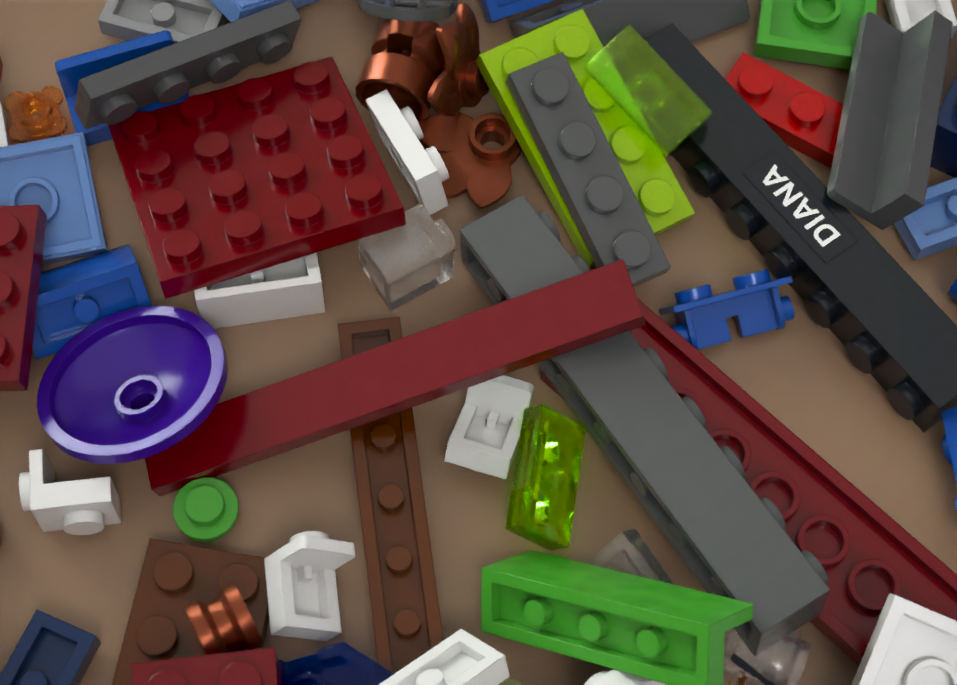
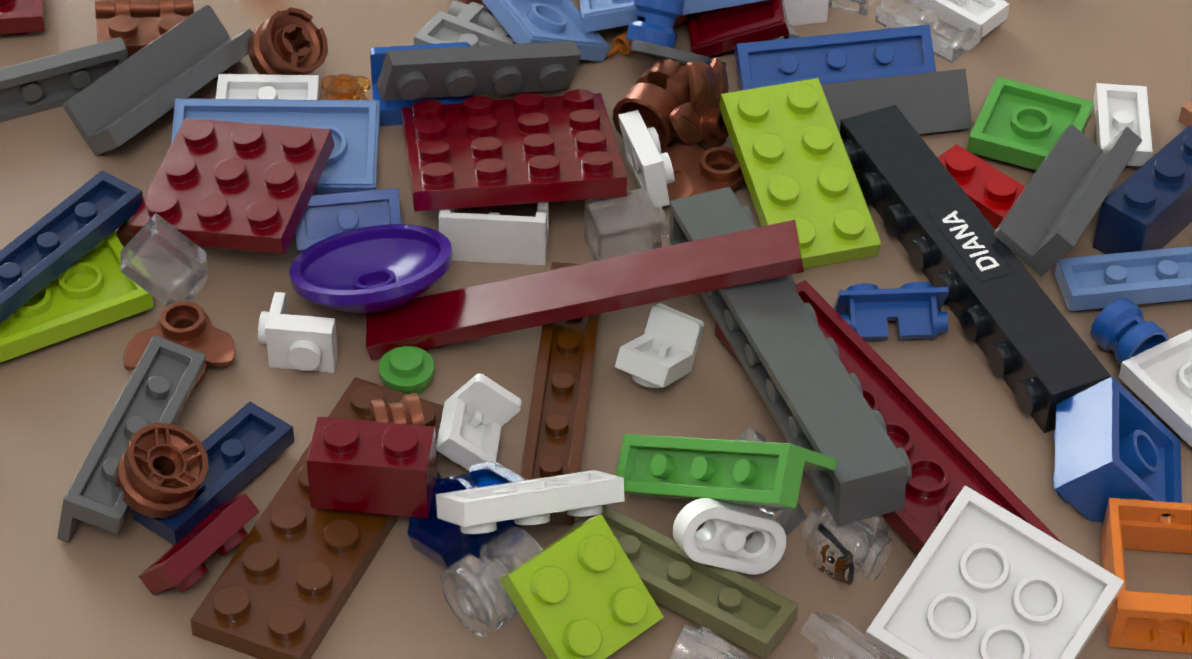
camera: 15 degrees right, 20 degrees down
(545, 478) = (698, 391): clear neon green plate -> none
(586, 168) = (791, 184): dark grey plate -> none
(647, 90) = (857, 137): clear neon green plate -> none

